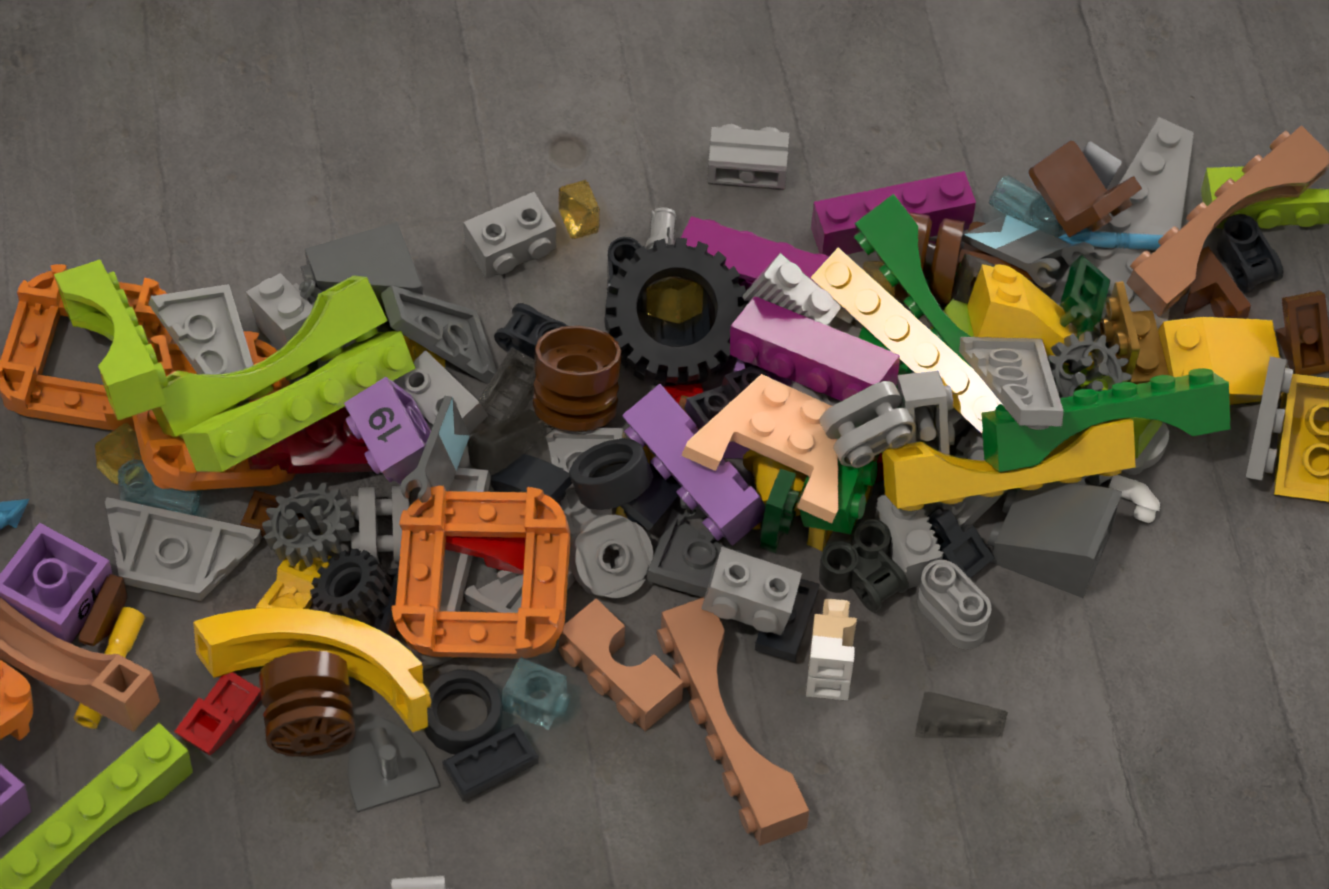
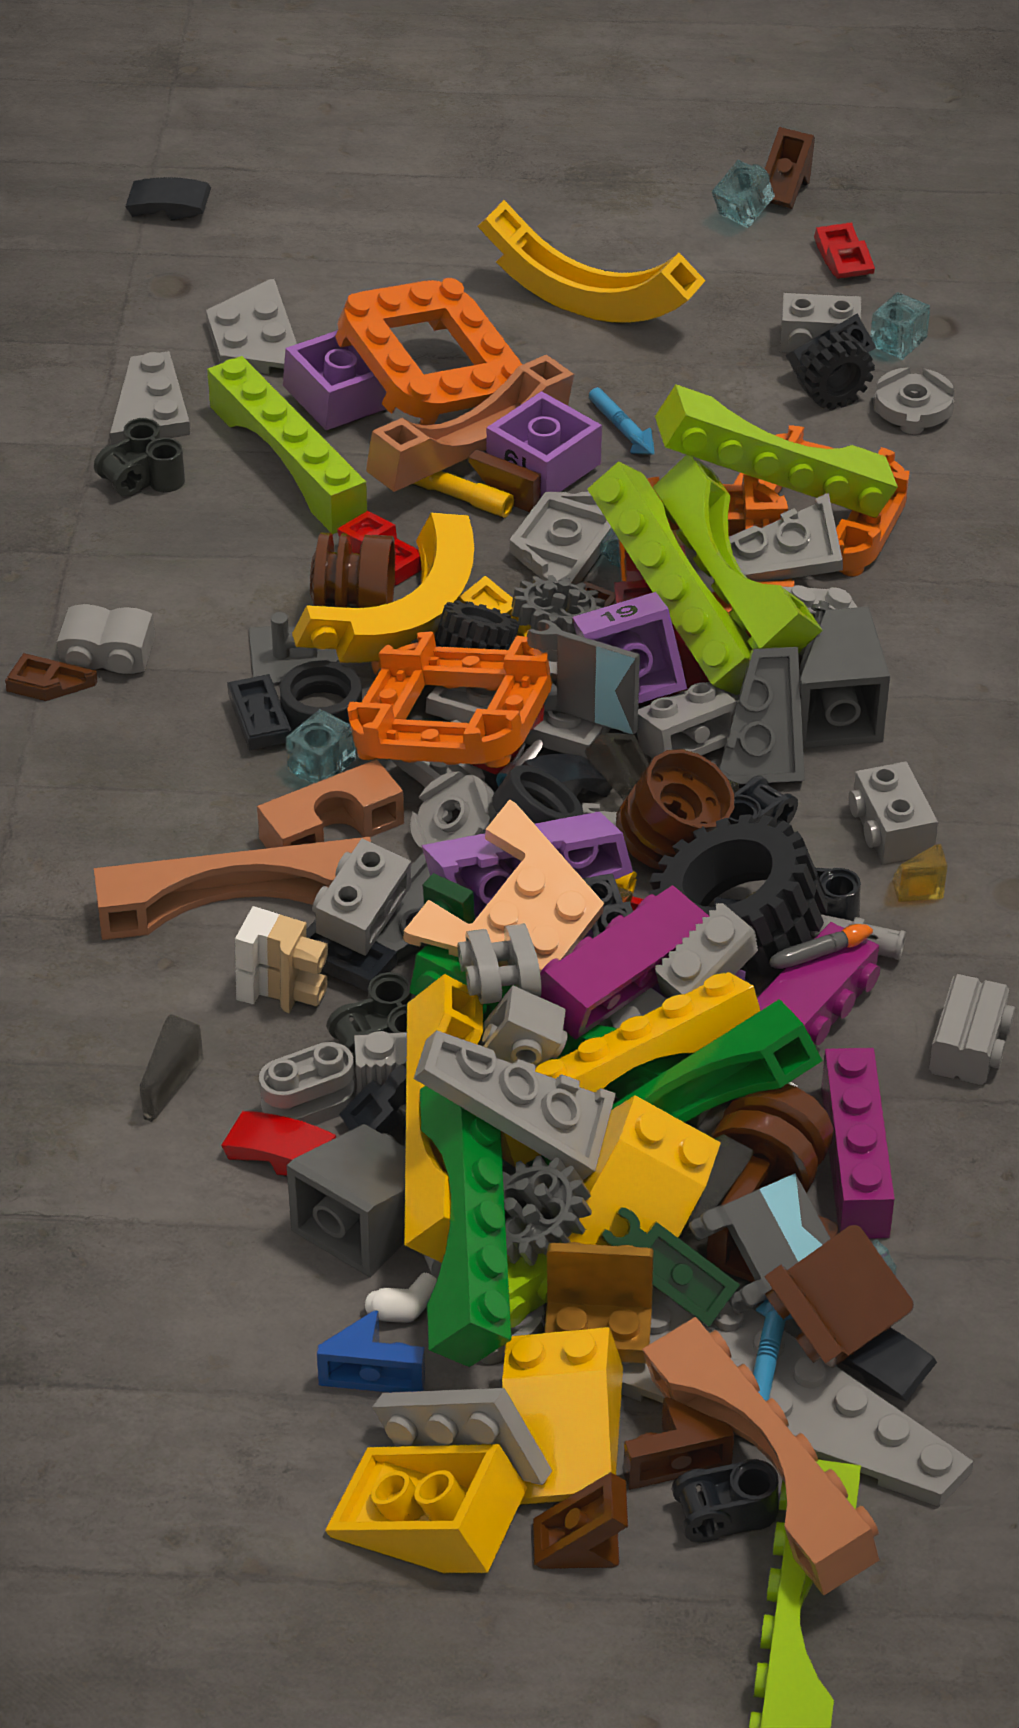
camera: 105 degrees right, 15 degrees down
(699, 232) = (798, 954): none -> dark grey piece
(1010, 618) = (272, 1139): none -> red slope
(1205, 505) = (360, 1362): none -> blue slope

